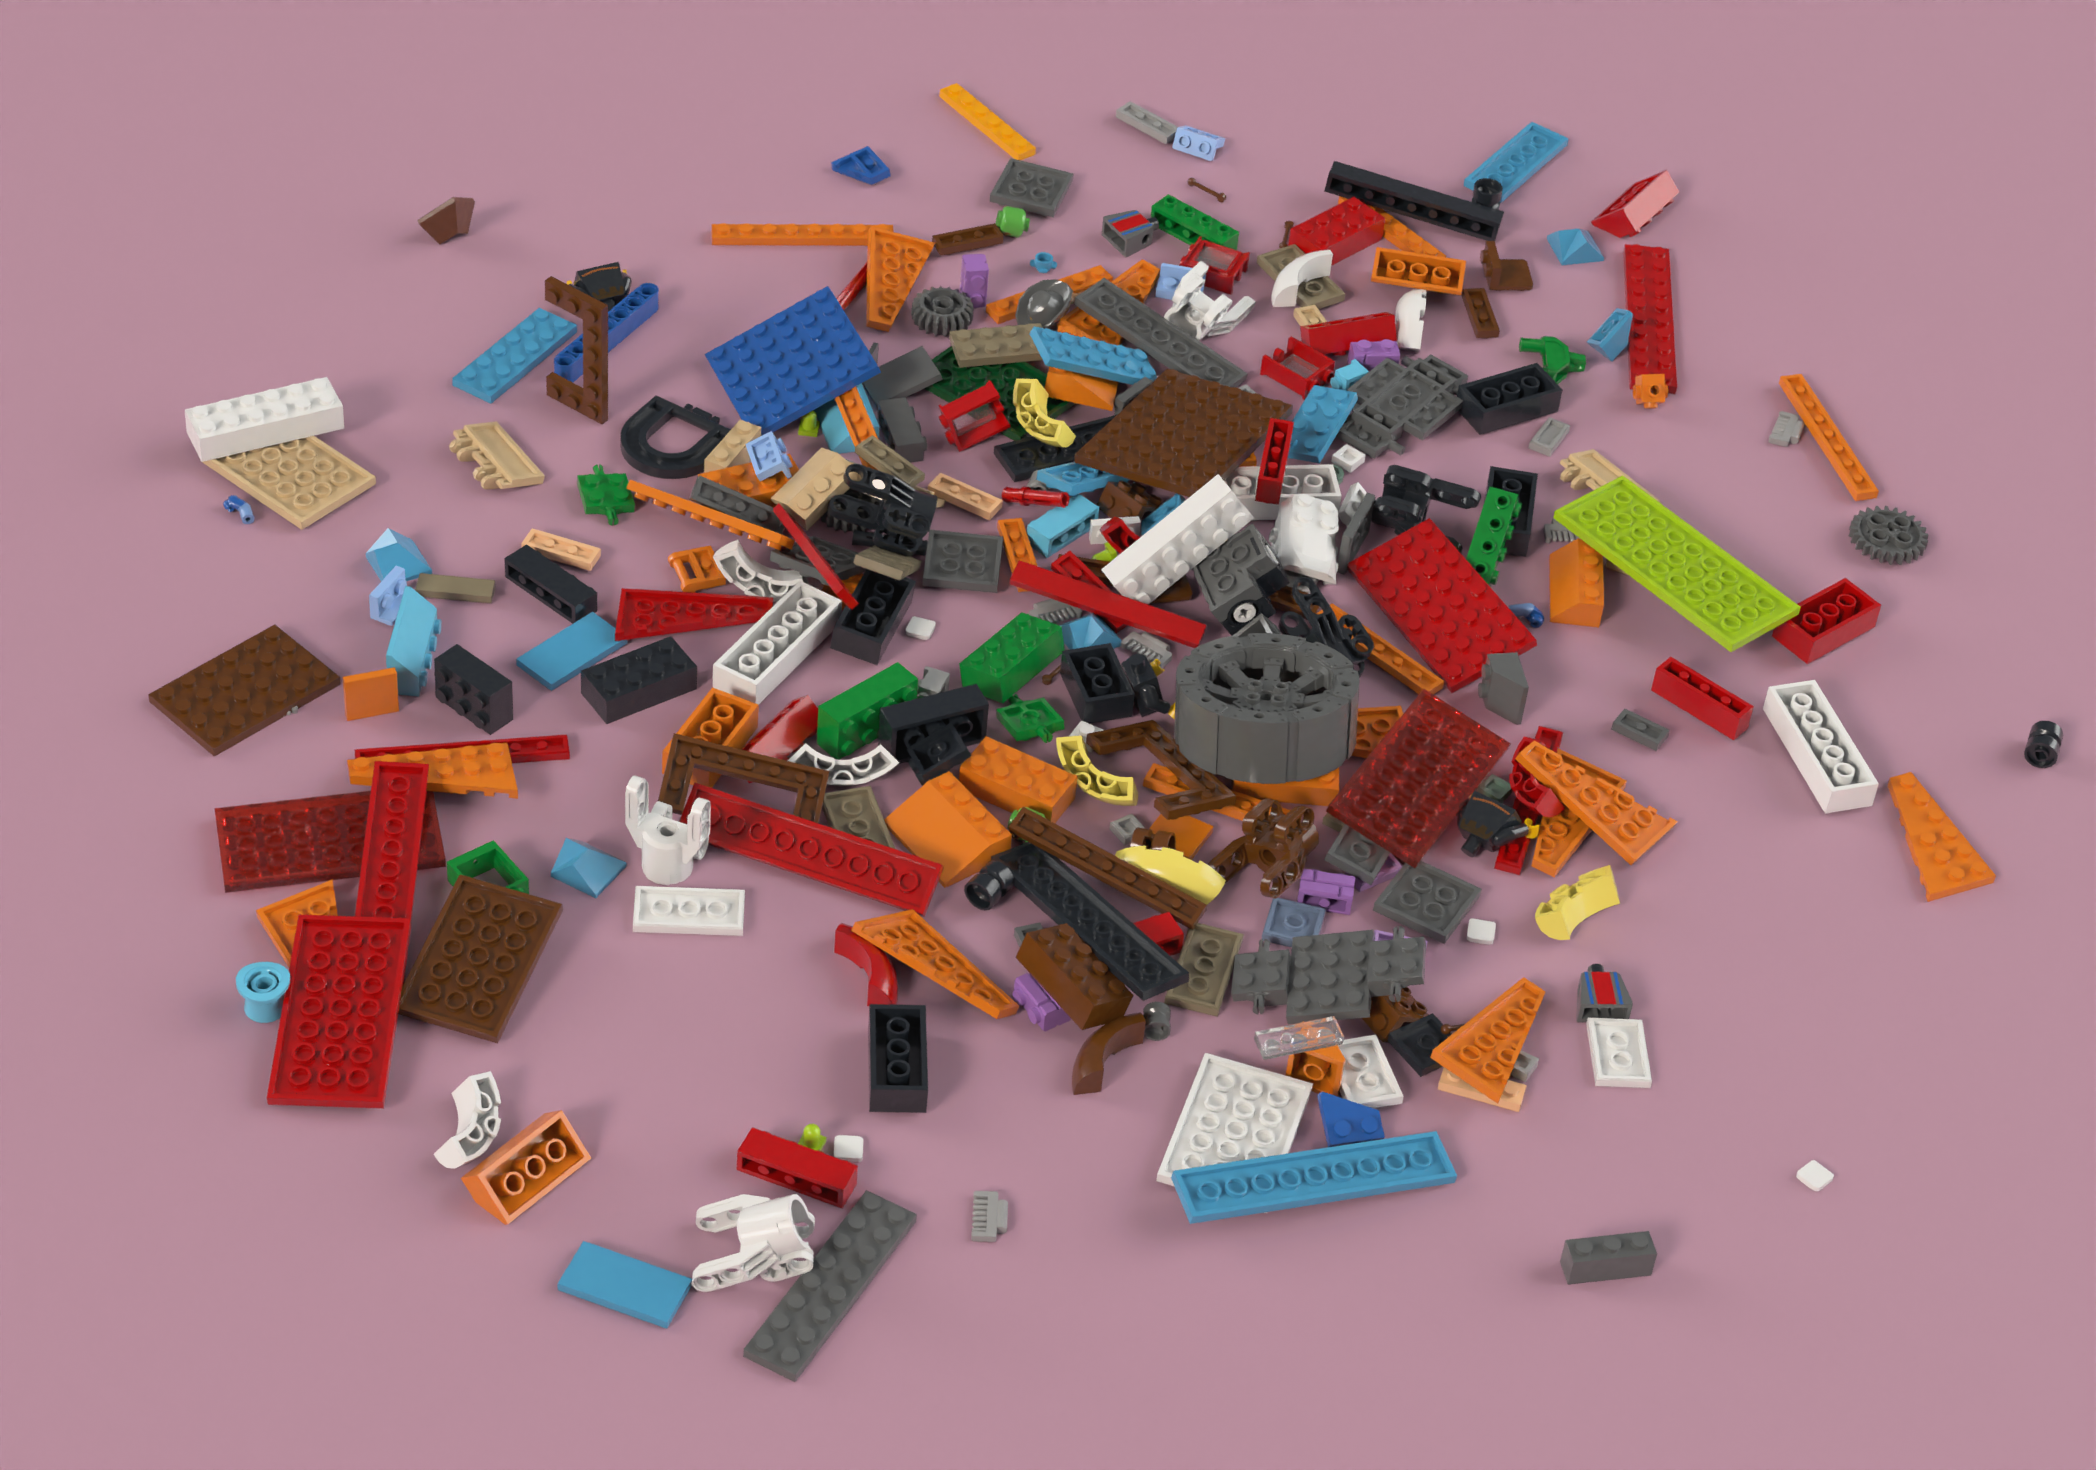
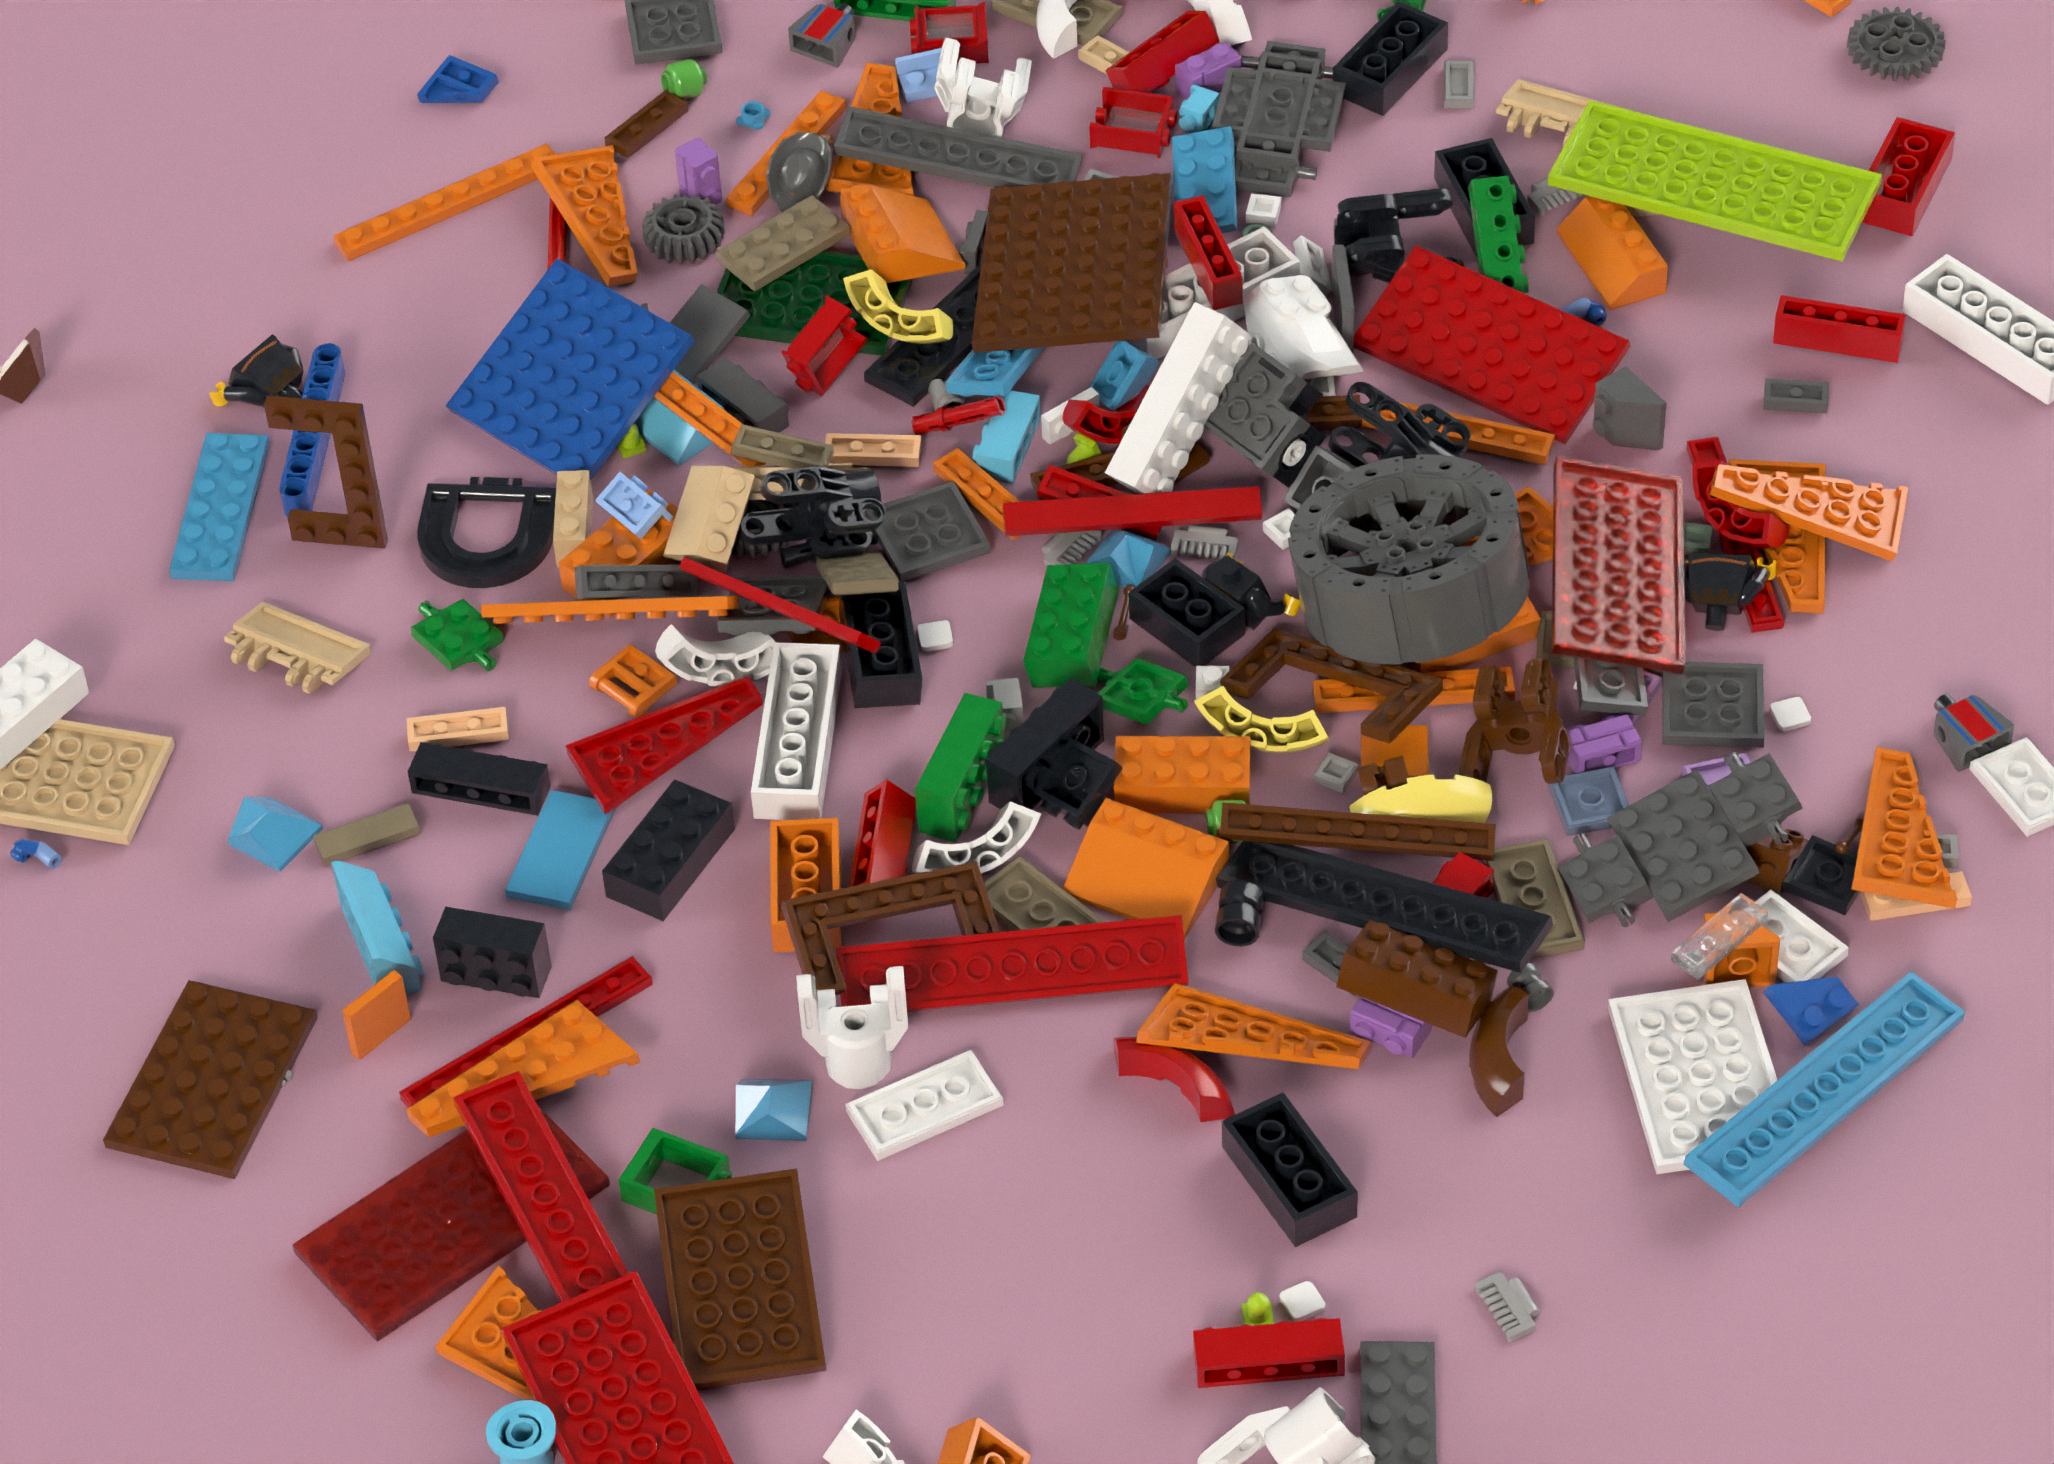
camera: 20 degrees left, 5 degrees up
(387, 596) = (308, 883): light blue bracket -> none
(1091, 356) = (910, 212): dark azure plate -> none
(1127, 500) = (1060, 374): reddish brown bracket -> none
(1576, 902) = (1869, 629): light yellow brick -> none

